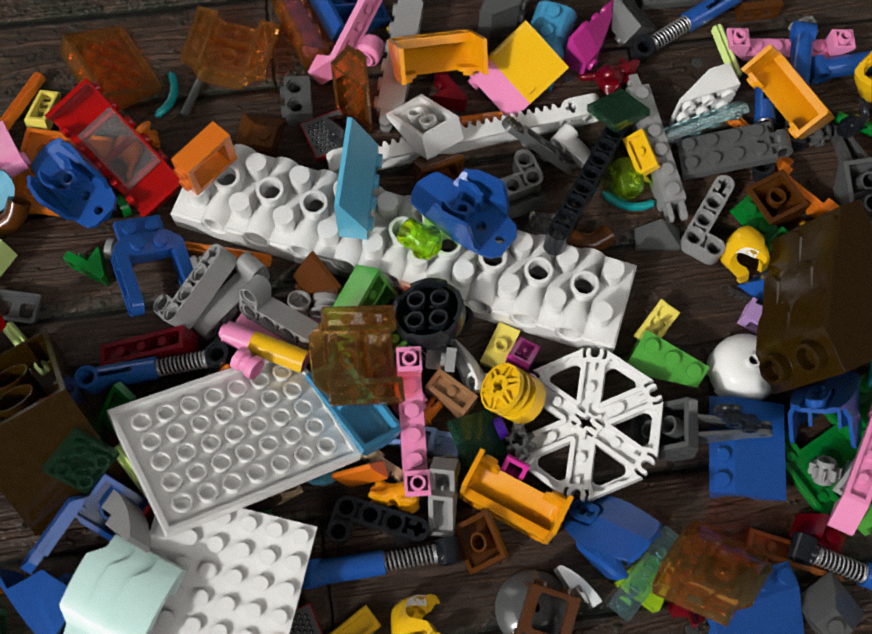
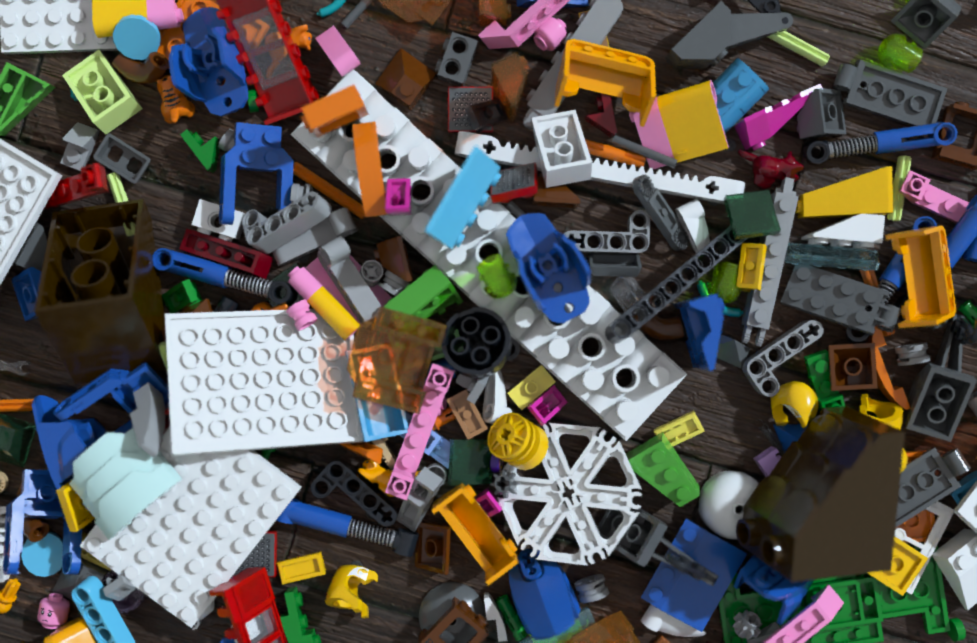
camera: 30 degrees right, 20 degrees up
(44, 234) = (174, 102): none -> orange animal
(80, 460) = (128, 349): clear green tile -> none
(116, 317) = (205, 218): none -> white brick
(183, 128) = (338, 51): none -> bright pink beam
(260, 202) = (369, 169): none -> orange slope
(297, 213) = (398, 197): none -> dark pink slope
(404, 163) = (516, 183): none -> tile
(499, 105) = (644, 151): none -> dark grey bar
(594, 579) = (511, 617): none -> green pin
(629, 211) = (703, 326): none -> blue piece
(659, 507) = (591, 588): none -> light grey wheel
(689, 66) = (862, 194): none -> yellow slope
(749, 510) = (661, 621): none -> white piece
(819, 169) = (912, 354): none -> light grey wheel

